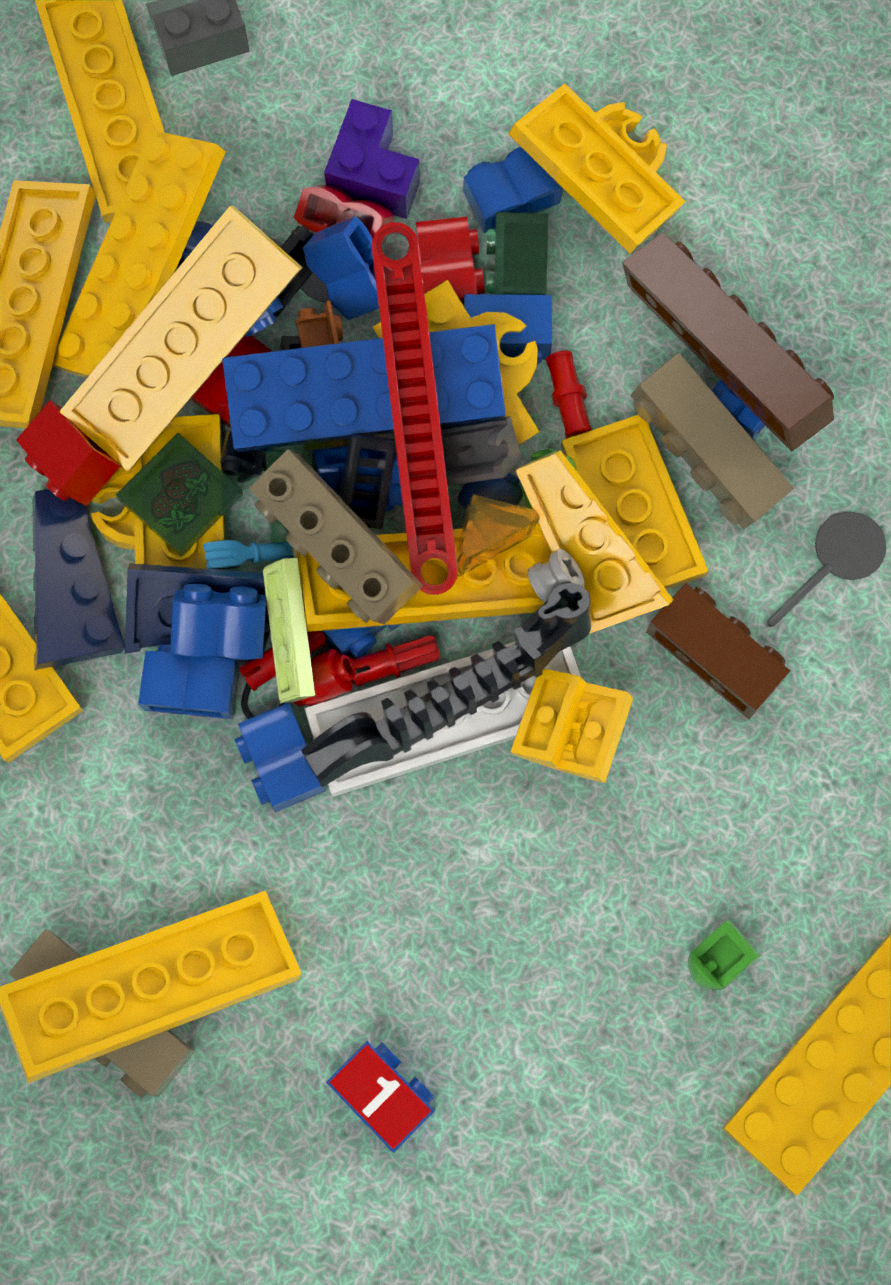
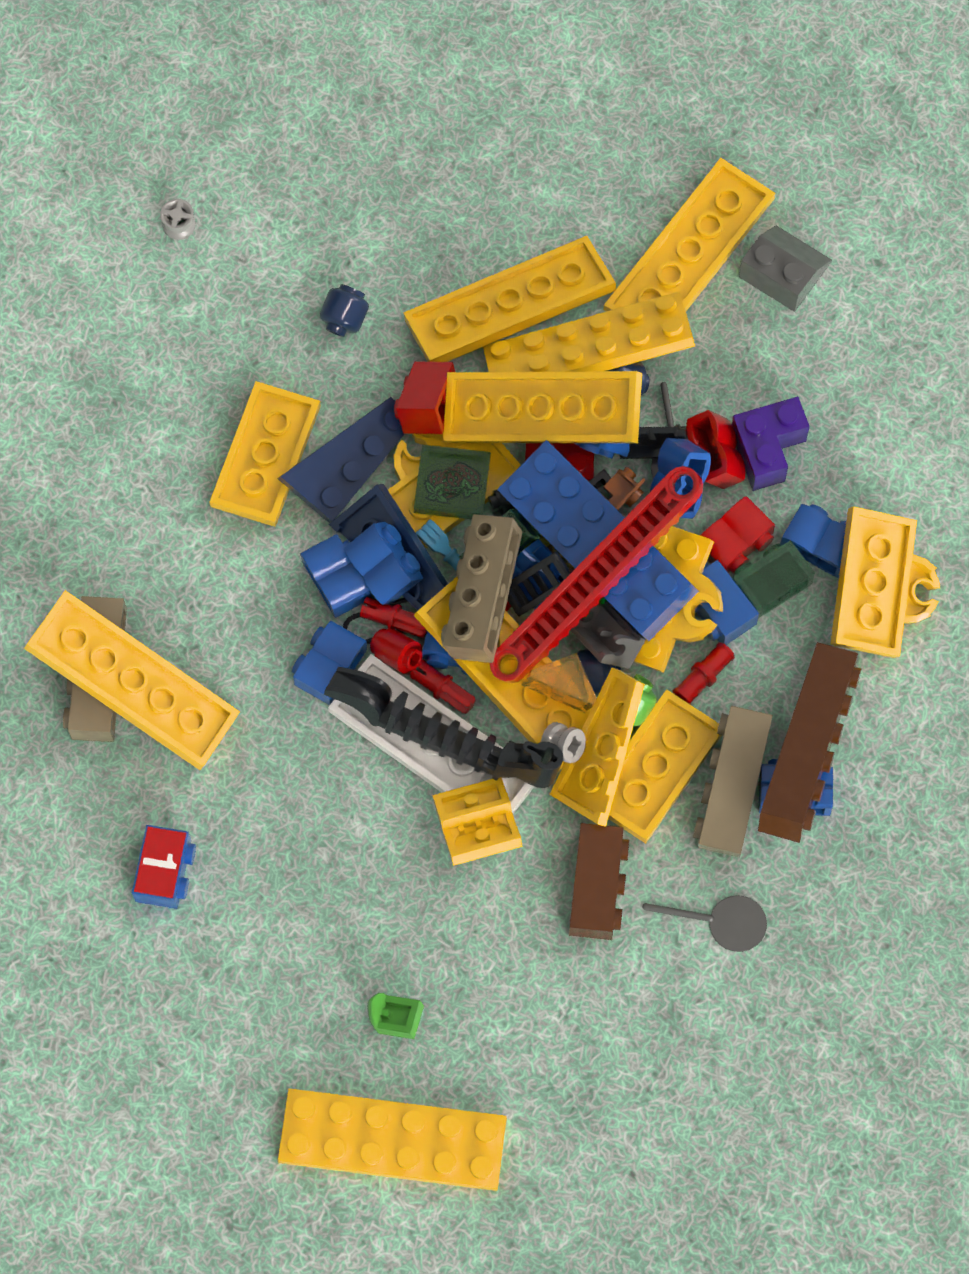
camera: 55 degrees right, 5 degrees down
(288, 630) = (407, 605): yellowish green tile -> none

